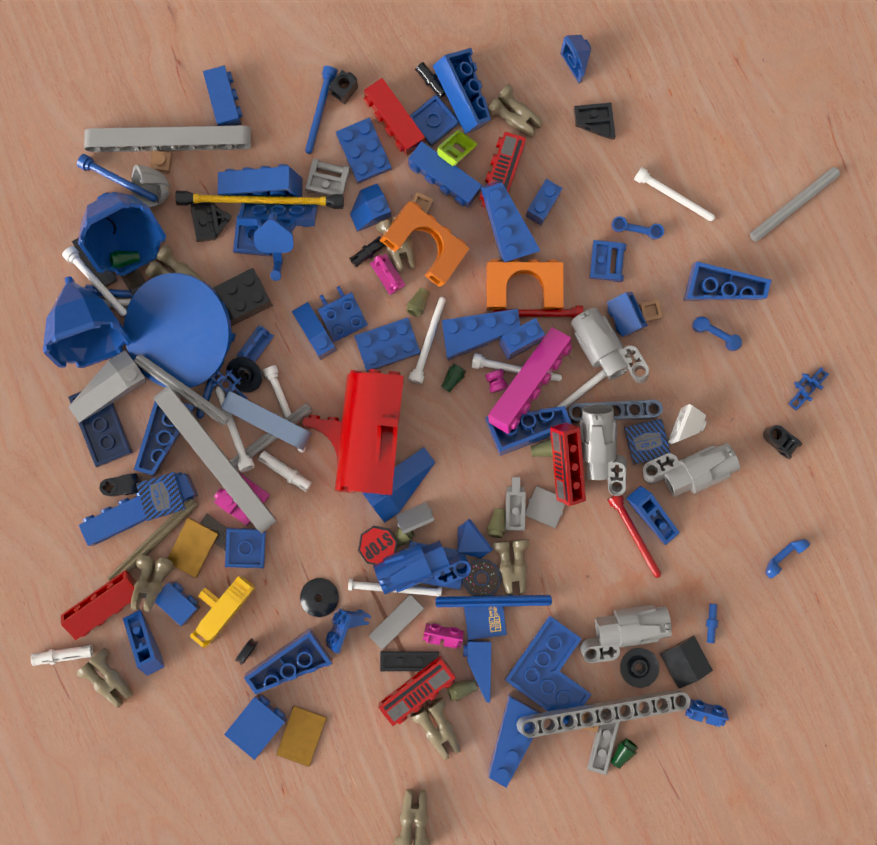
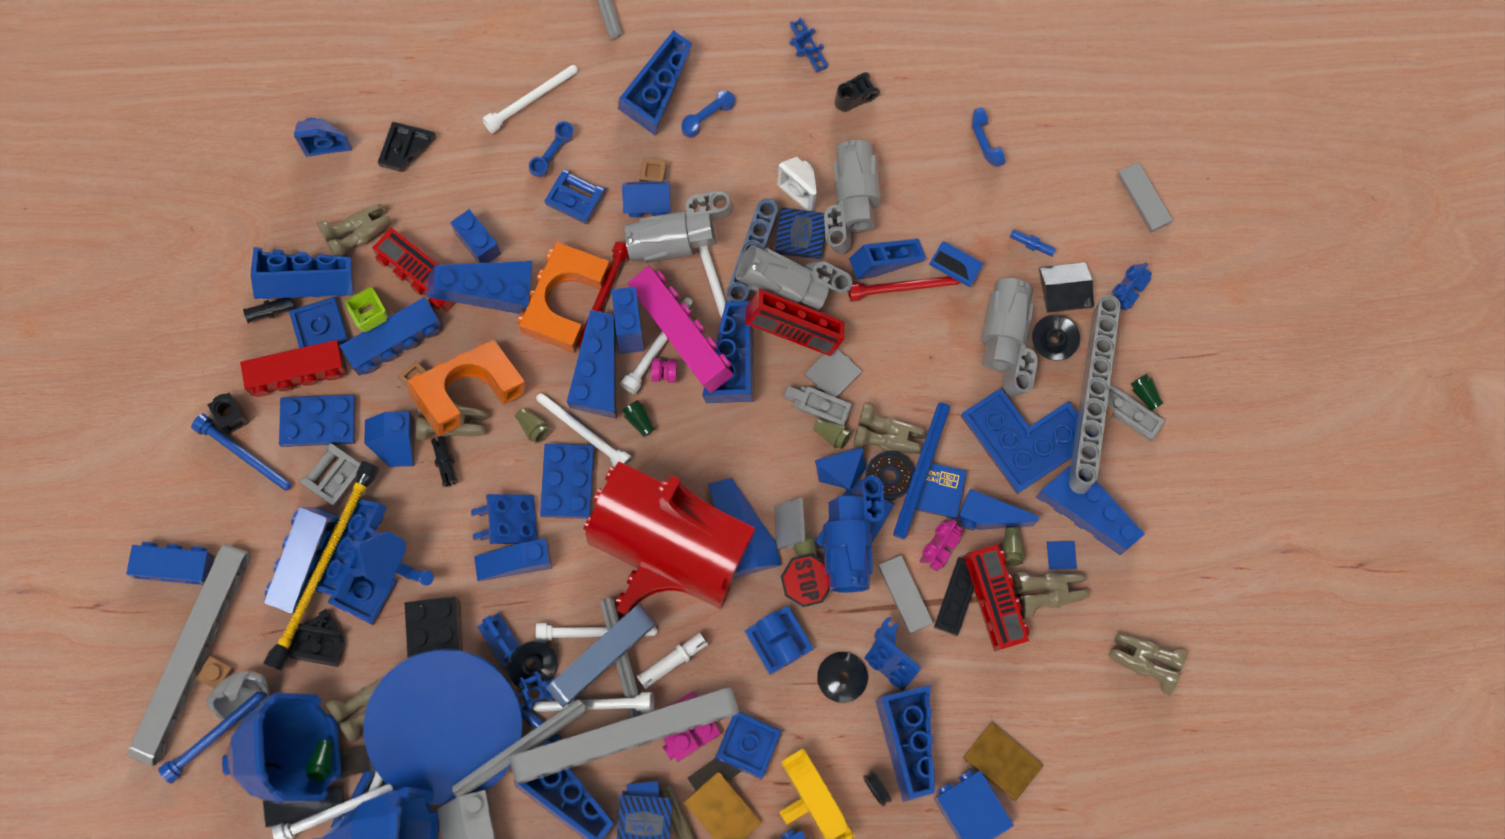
camera: 70 degrees left, 10 degrees down
(327, 542) = (778, 640): none -> blue plate
(387, 274) = (481, 448): dark pink hinge -> none
(412, 590) = (854, 603): white bar -> none
(471, 728) = (1061, 555): none -> blue sticker
(542, 449) = (765, 347): olive cone -> none
(669, 569) = (956, 264): none -> blue slope
(787, 699) = (1144, 197): none -> light grey tile

